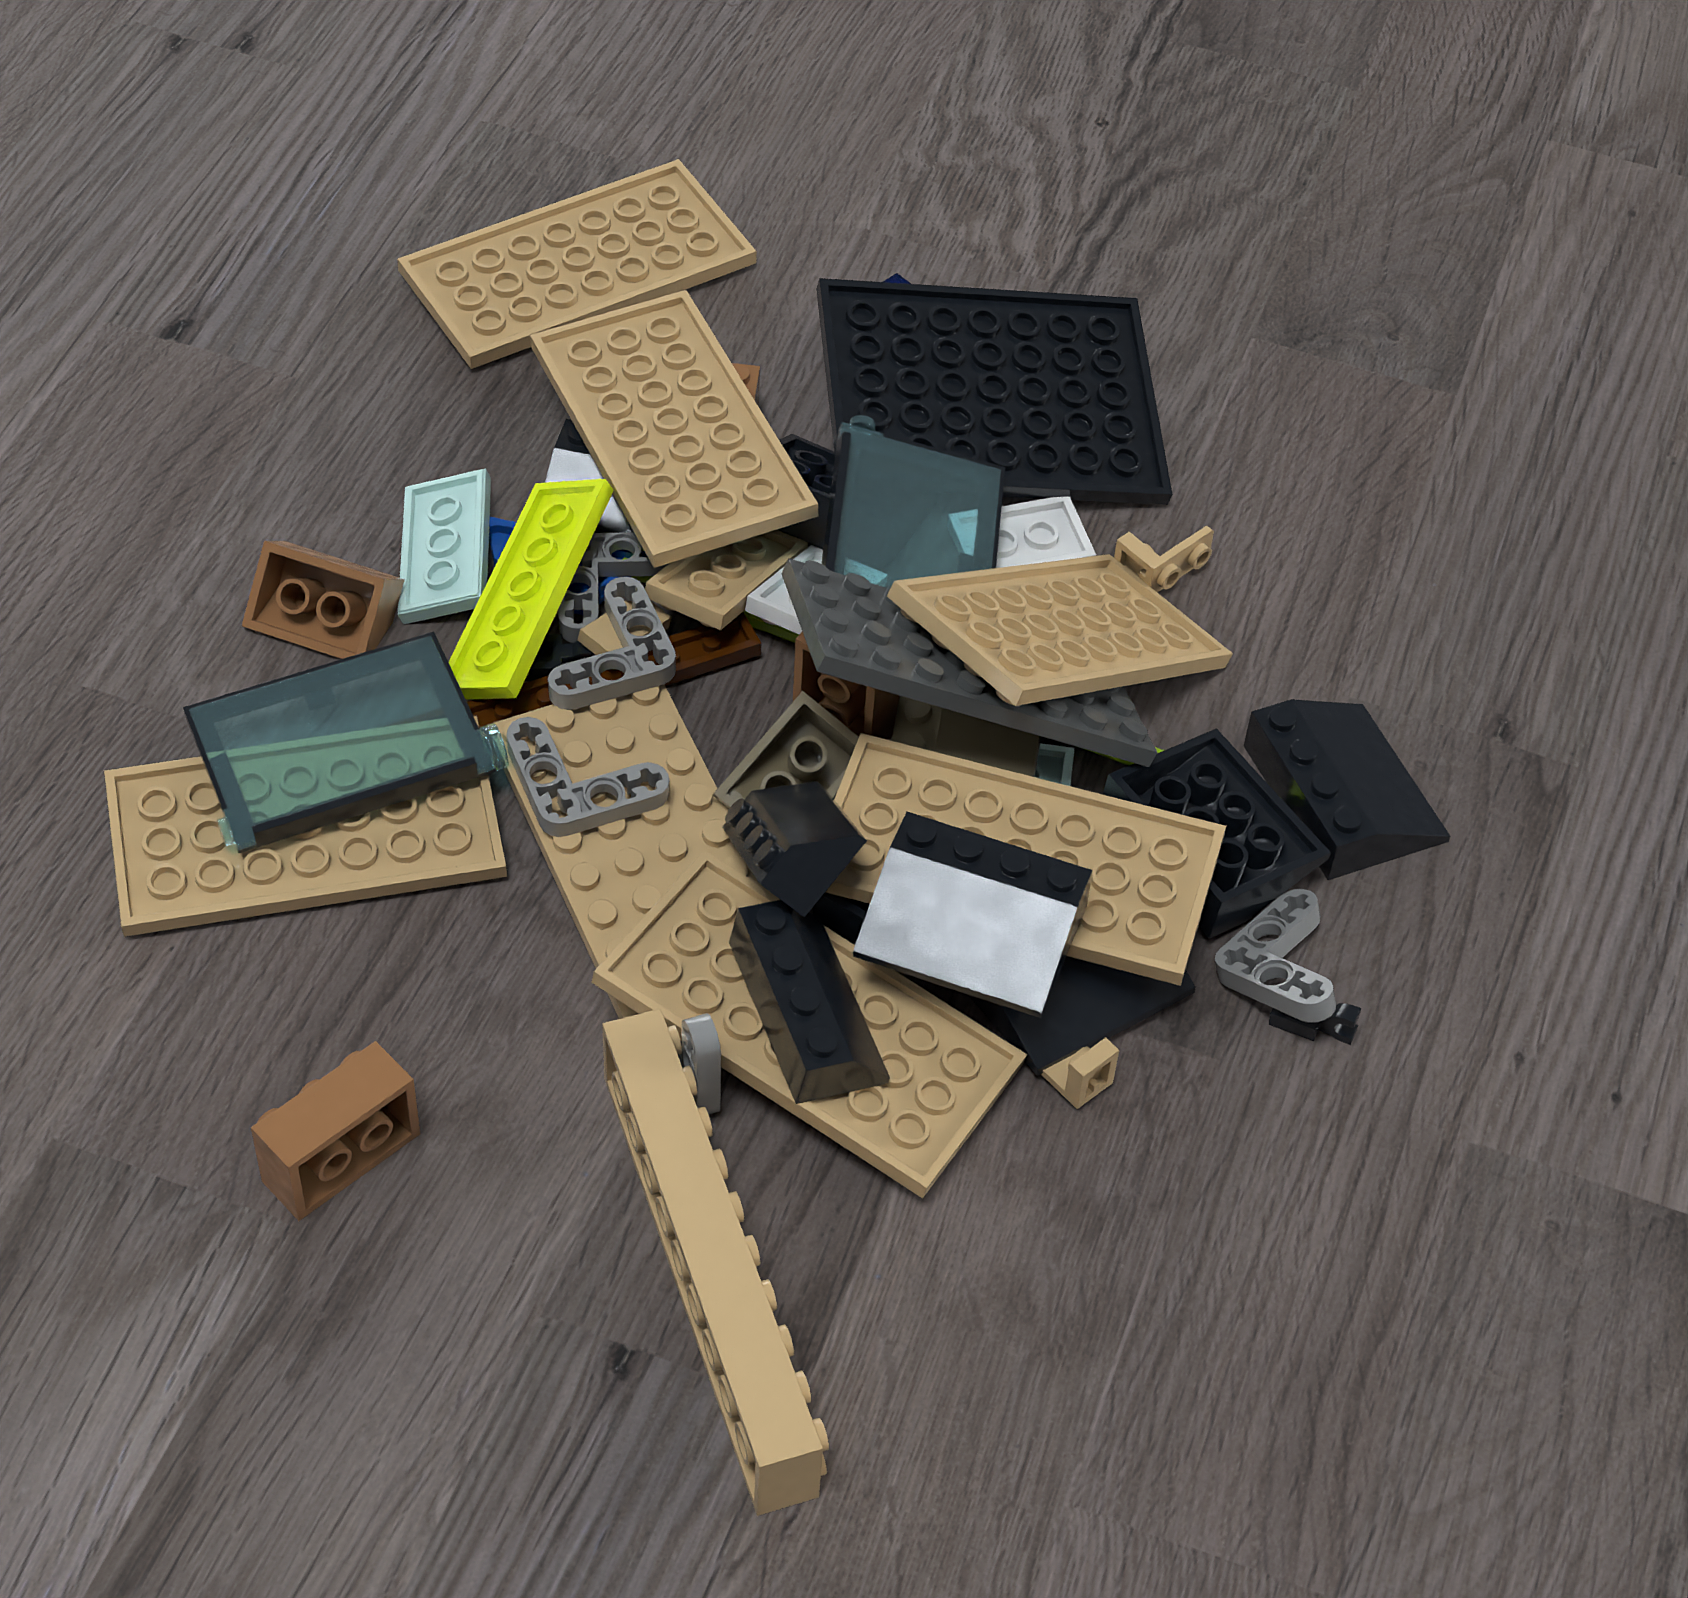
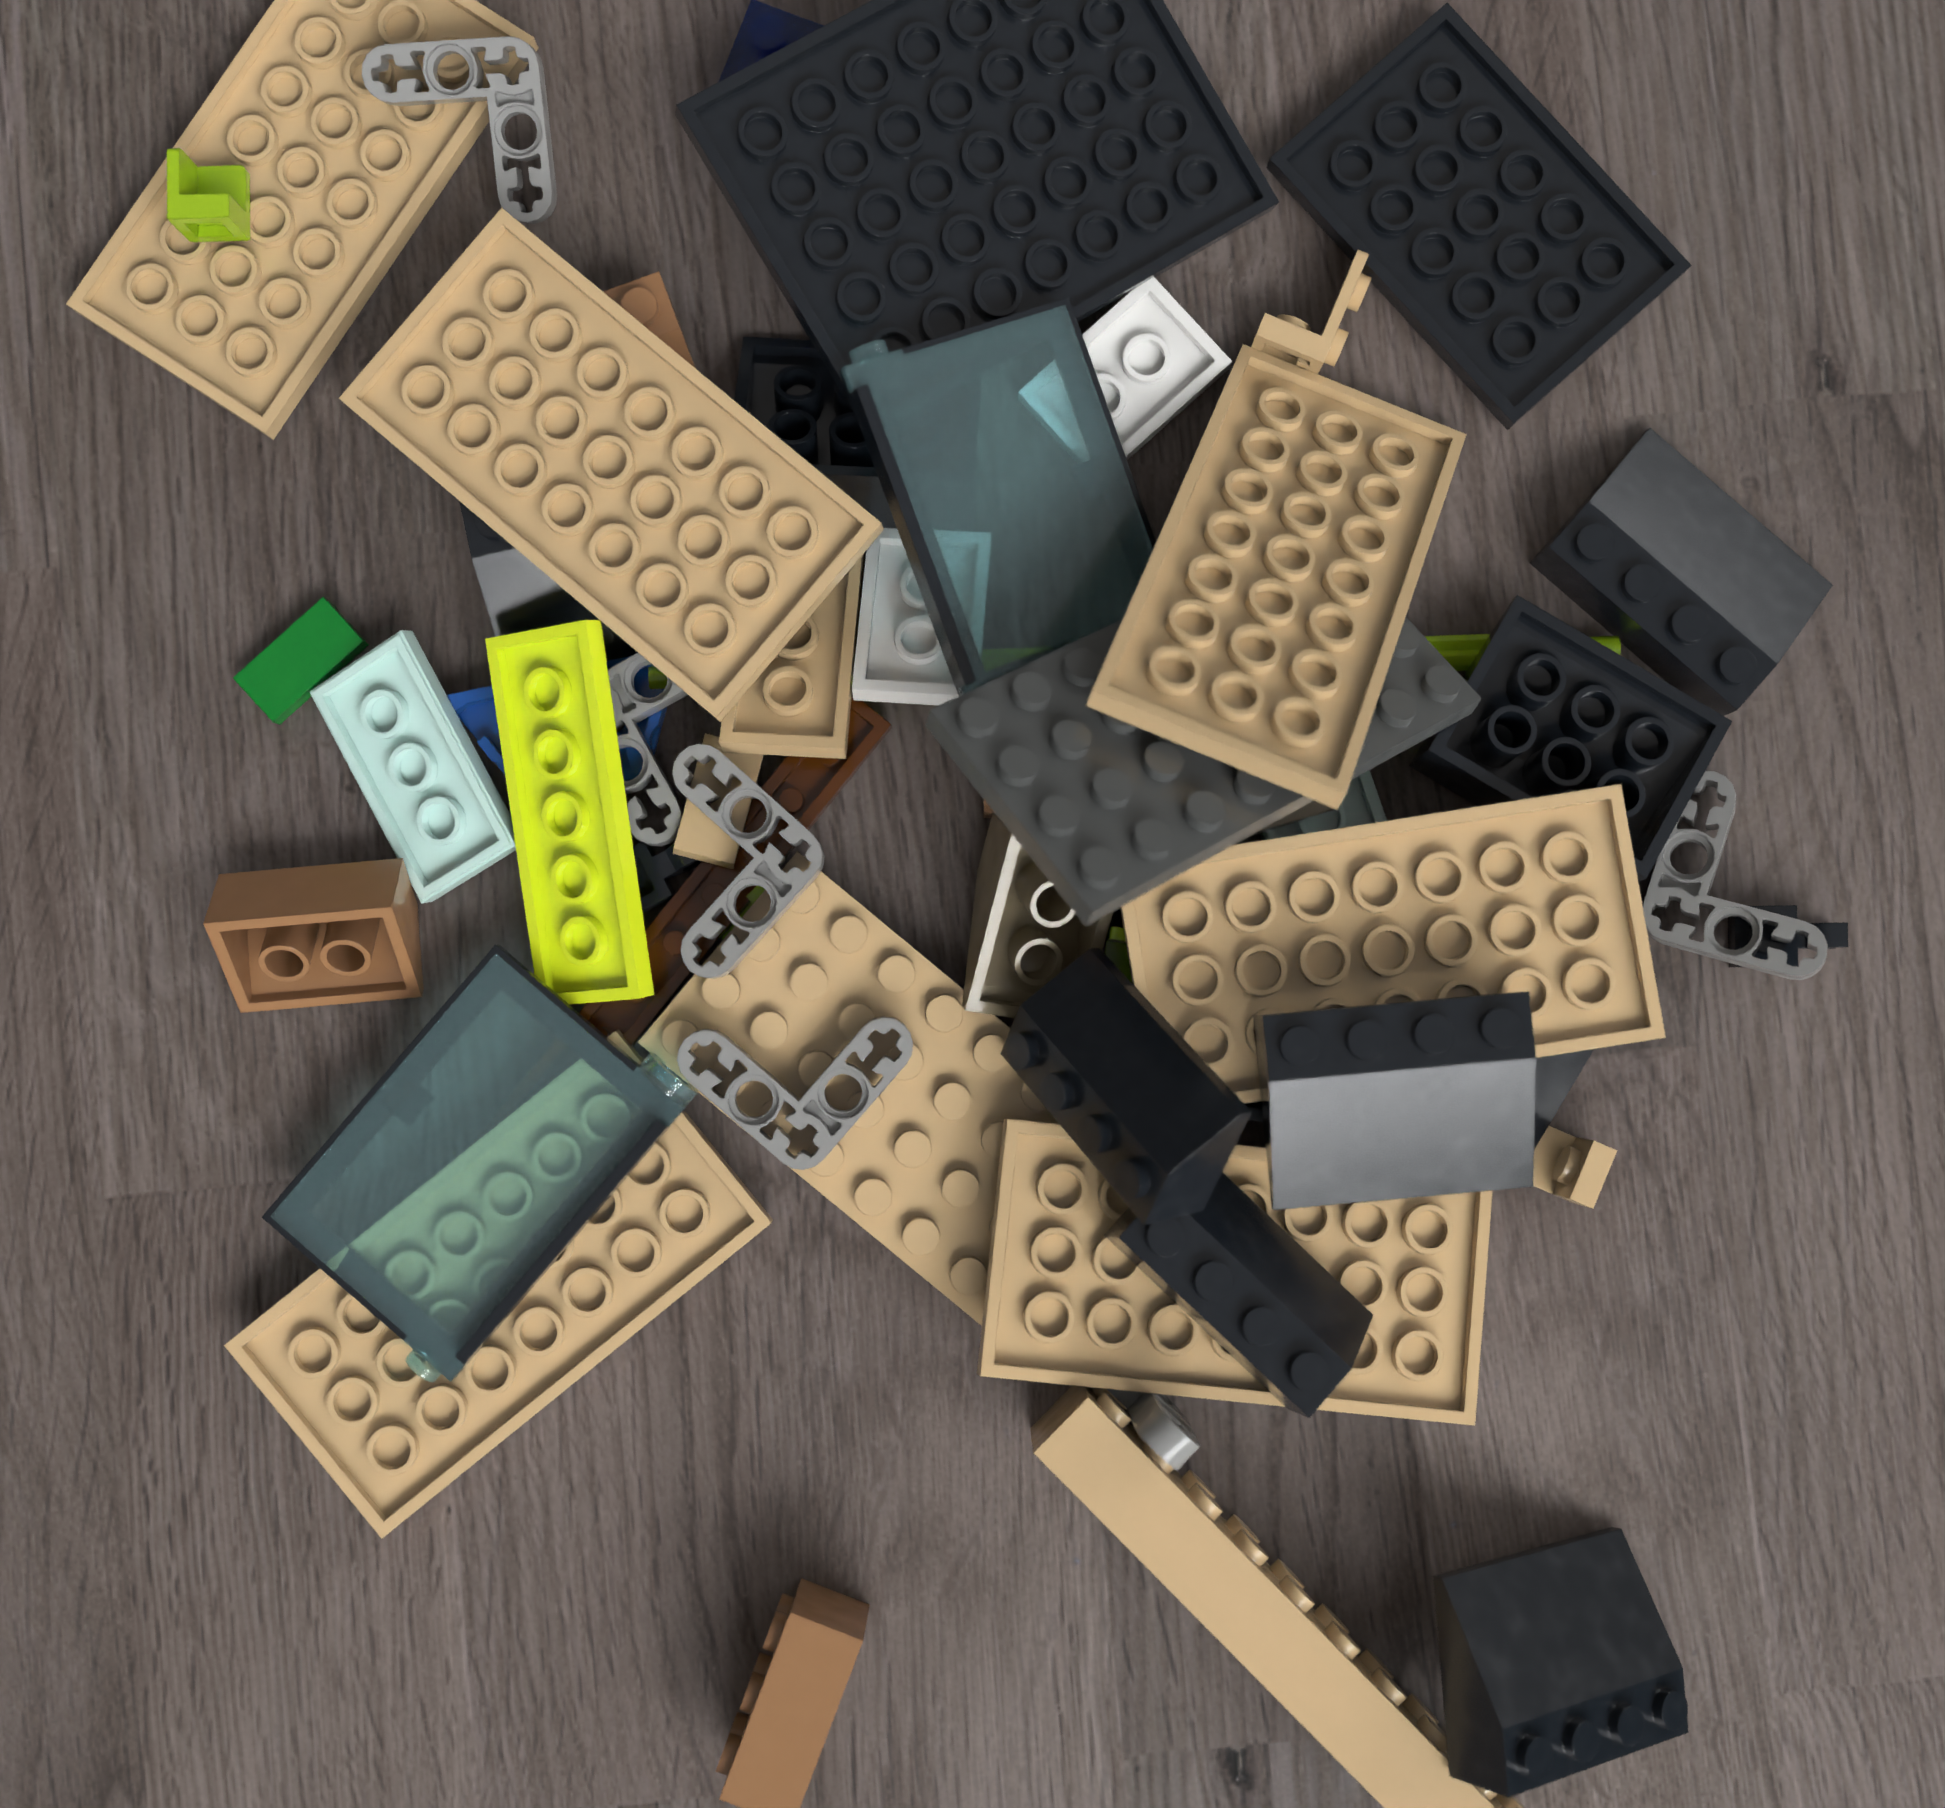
camera: 20 degrees left, 35 degrees up
(392, 474) = (300, 660): none -> green tile
(511, 244) = (207, 200): none -> lime panel
(715, 259) = (503, 102): none -> light grey beam
(898, 1343) = (1553, 1664): none -> black slope
(1301, 555) = (1477, 215): none -> black plate

